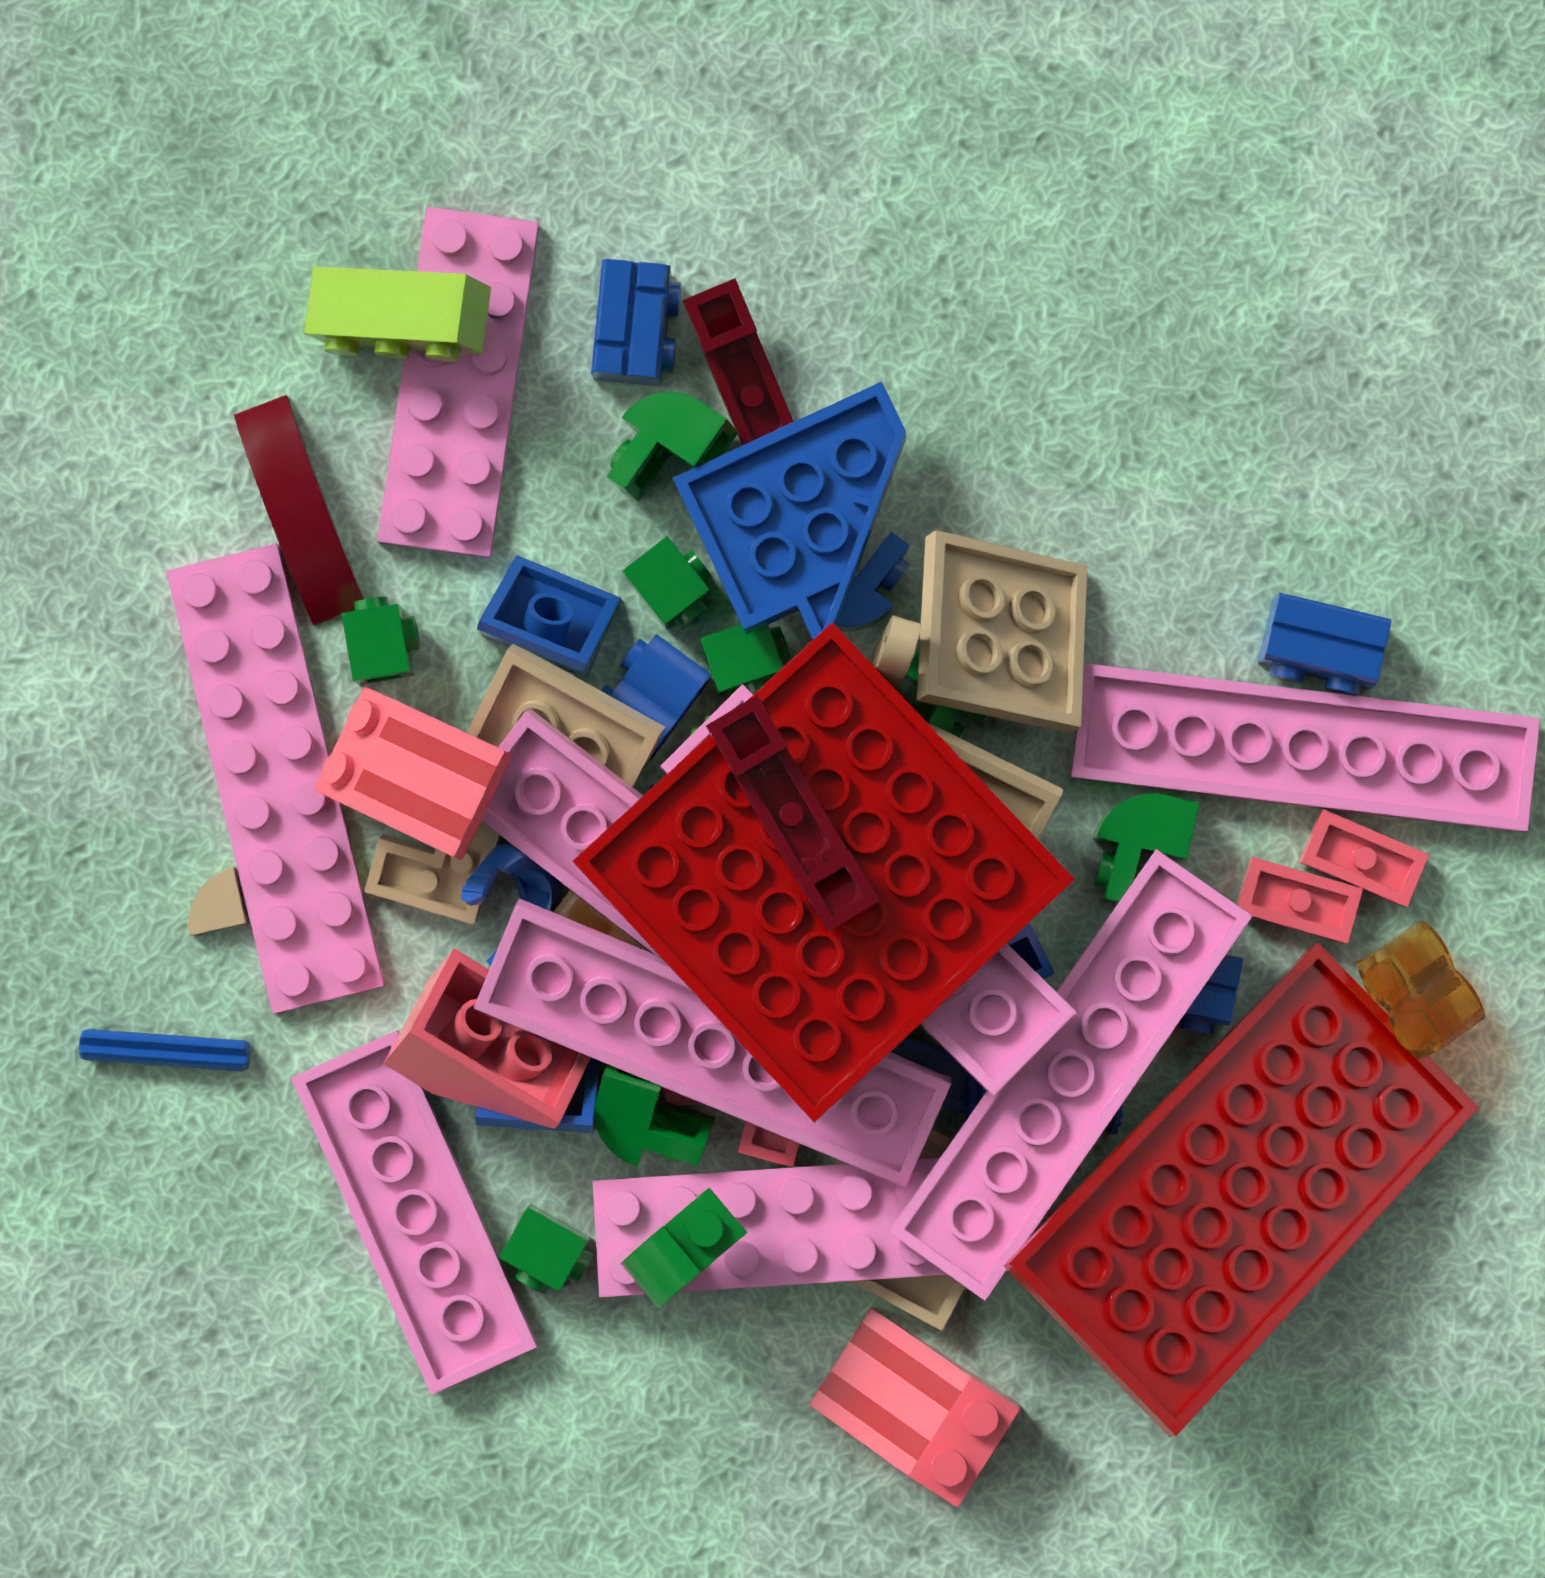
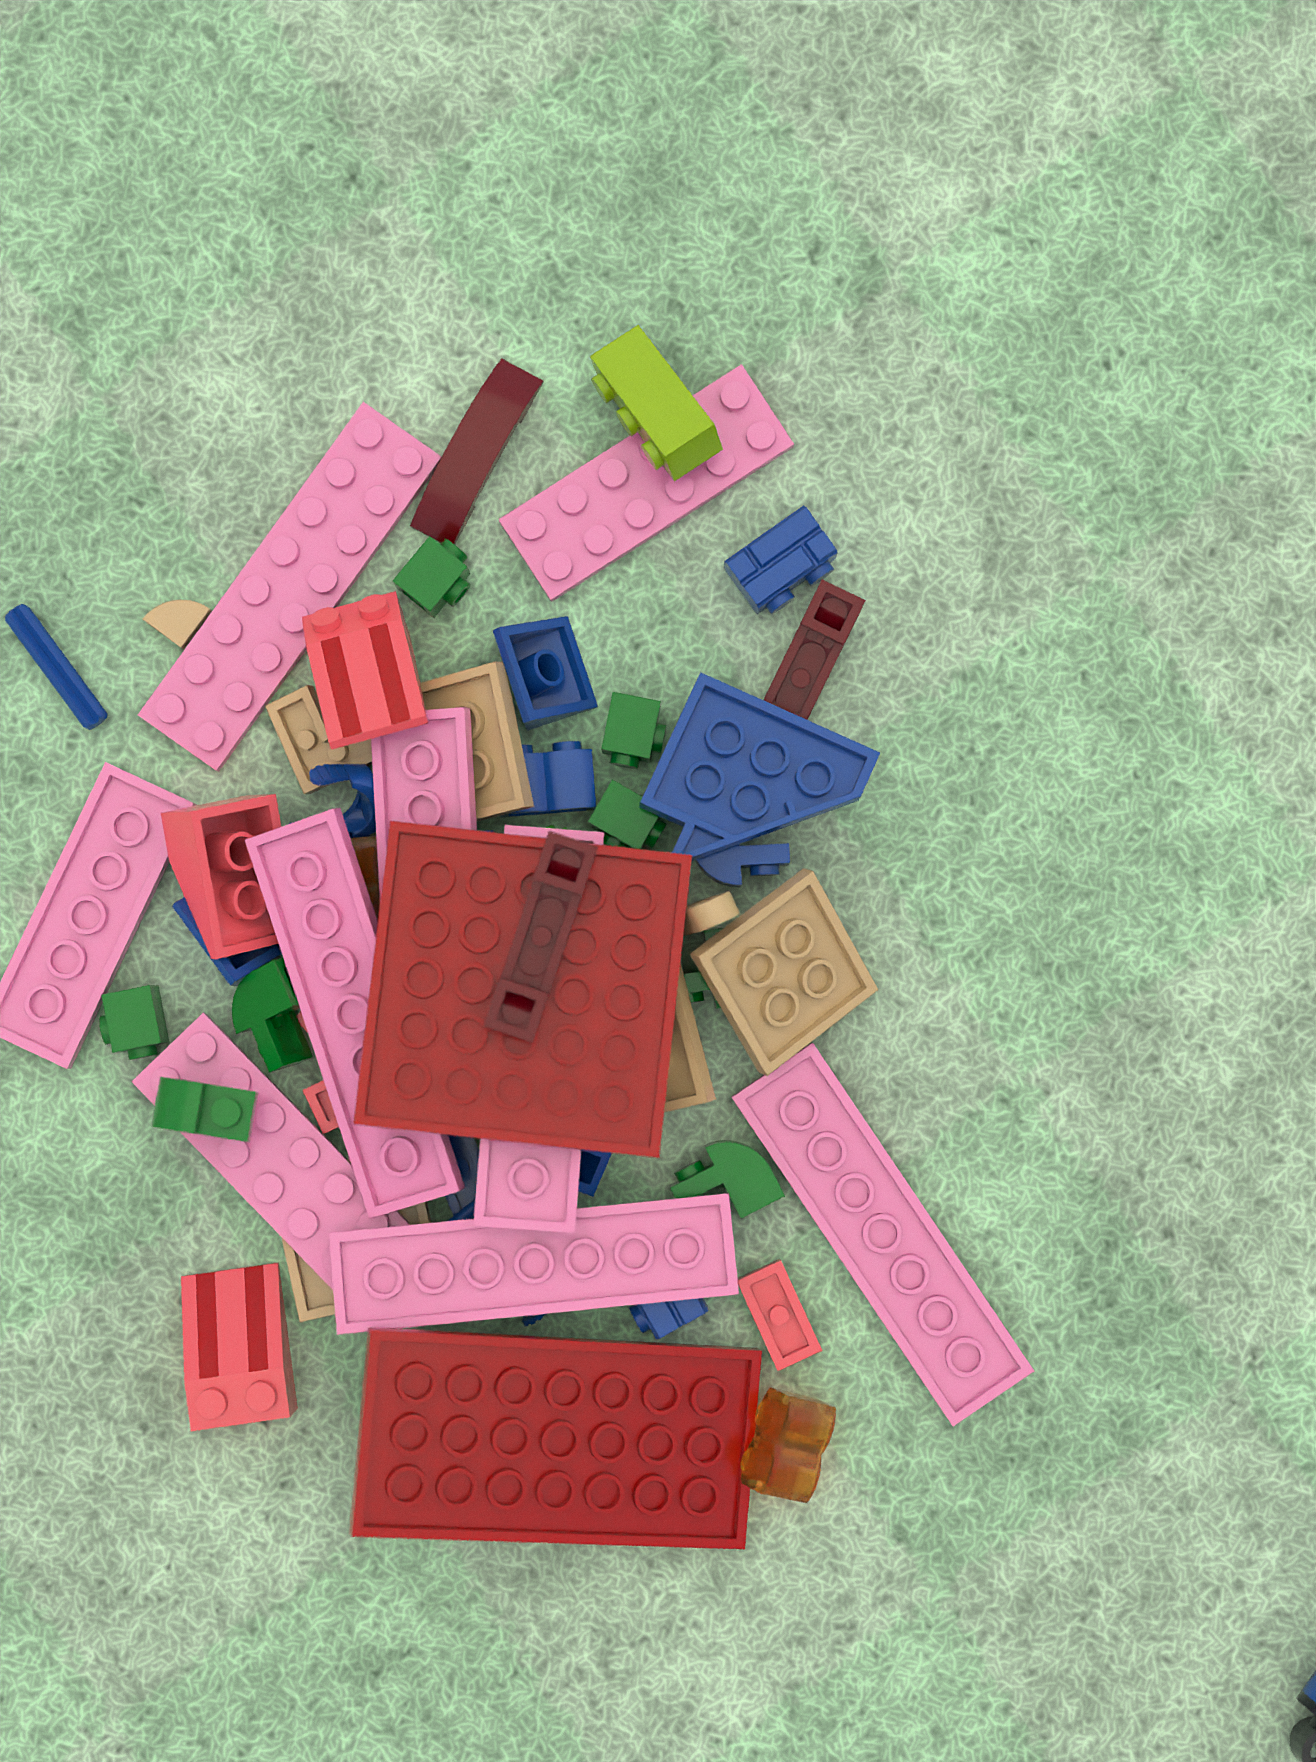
camera: 50 degrees right, 0 degrees up
(665, 427) = (731, 640): green brick -> none
(1324, 643) = (961, 1187): blue brick -> none
(1363, 858) = (843, 1333): coral plate -> none

